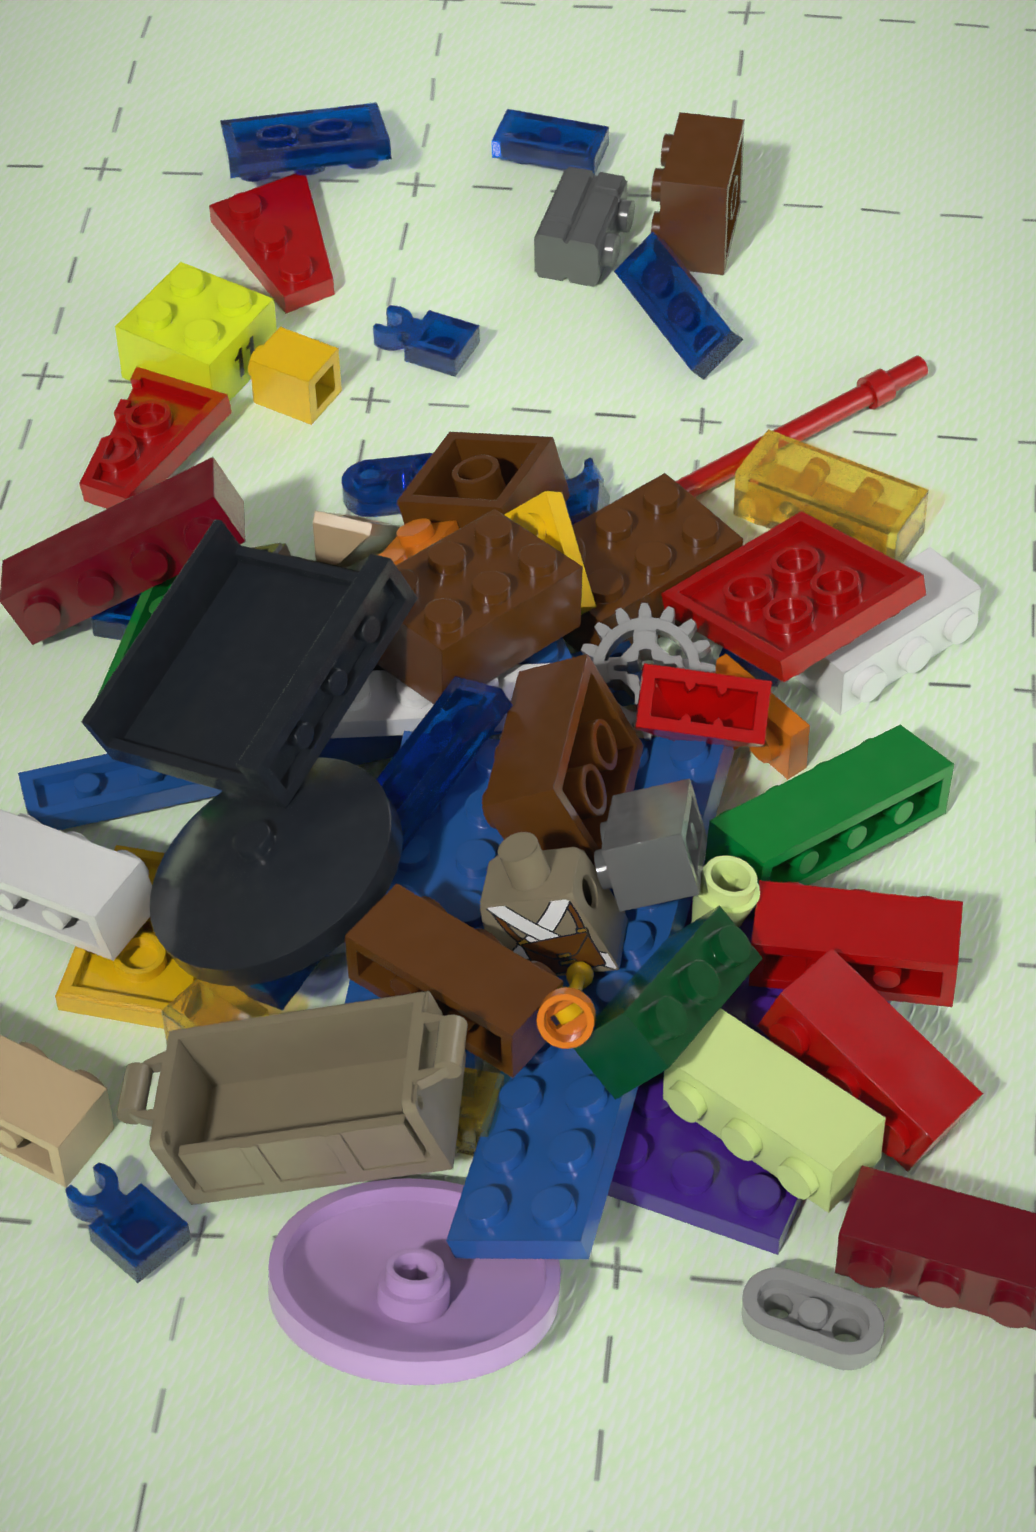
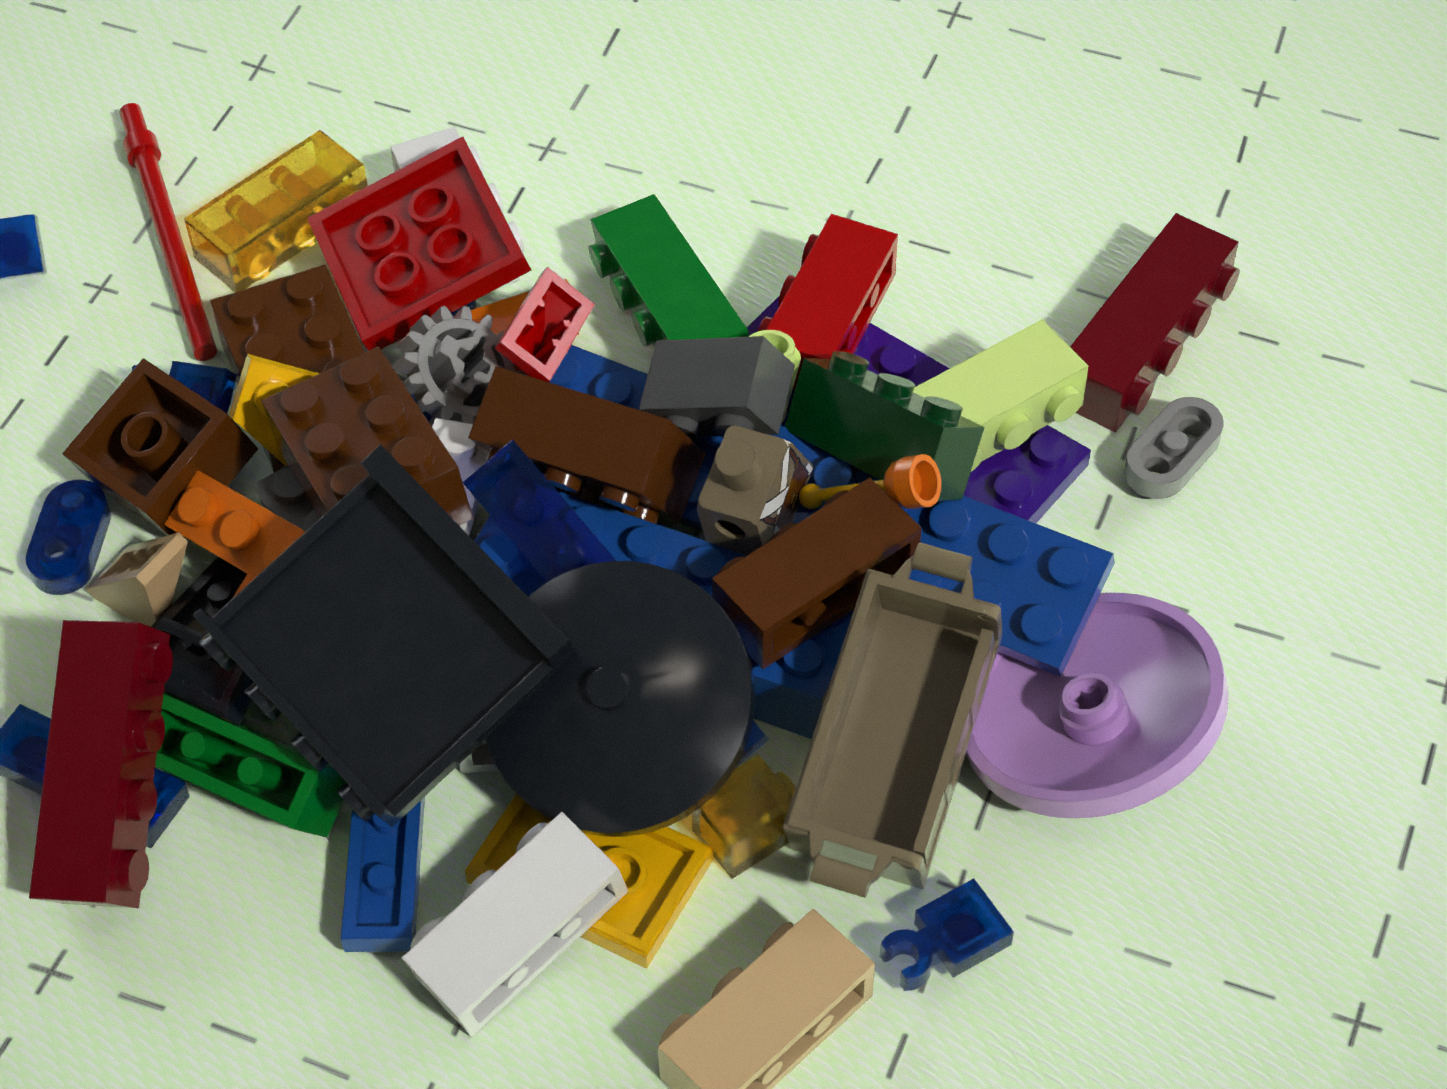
camera: 75 degrees left, 5 degrees up
(873, 1053) = (943, 324): red brick -> none

